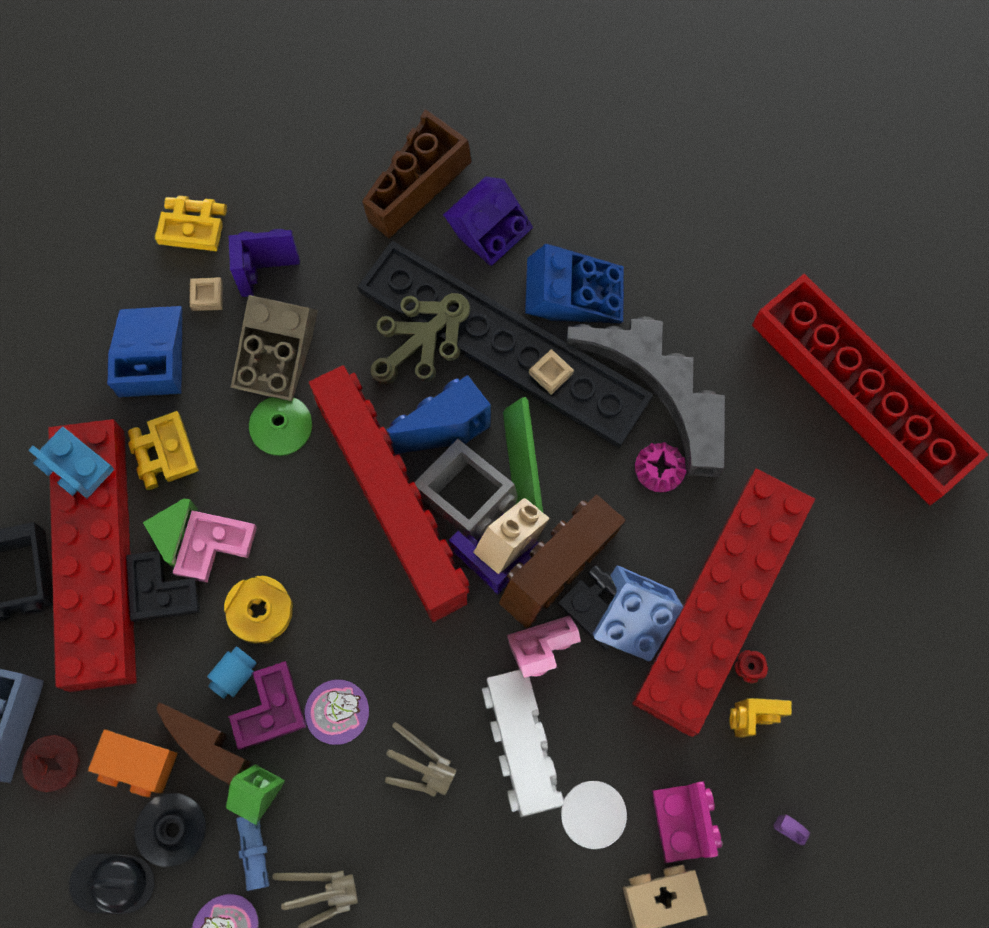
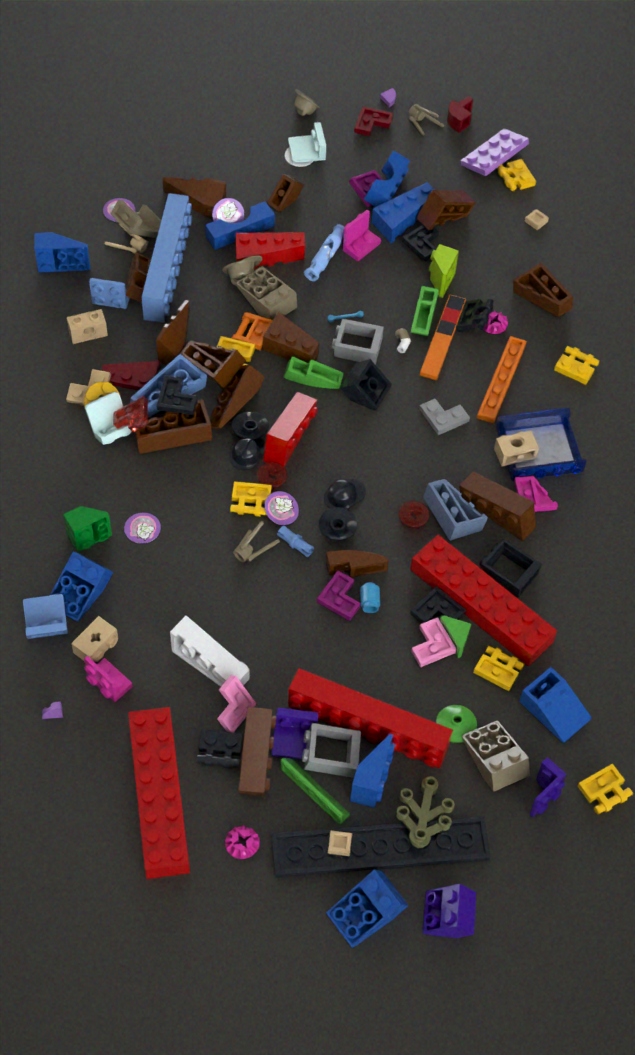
camera: 140 degrees right, 15 degrees down
(73, 462) = (526, 617): dark azure bracket -> none
(132, 762) = (378, 534): orange brick -> none
(206, 294) = (560, 758): tan tile -> none
(253, 591) = (383, 642): yellow plate -> none
(253, 793) = (315, 560): bright green slope -> none
(336, 712) = (309, 619): sticker -> none
(417, 174) = (512, 908): reddish brown wedge -> none
(436, 776) = (239, 620): dark tan plant -> none
(511, 535) = (289, 734): tan brick -> none
(594, 815) = (153, 658): white sticker -> none
(638, 614) = (198, 754): medium blue bracket -> none
(696, 415) = (271, 891): flat silver arch -> none
(757, 711) = (104, 744): yellow bracket -> none
(760, 666) = (122, 767): red plate -> none
(868, 389) = (157, 963): red brick -> none

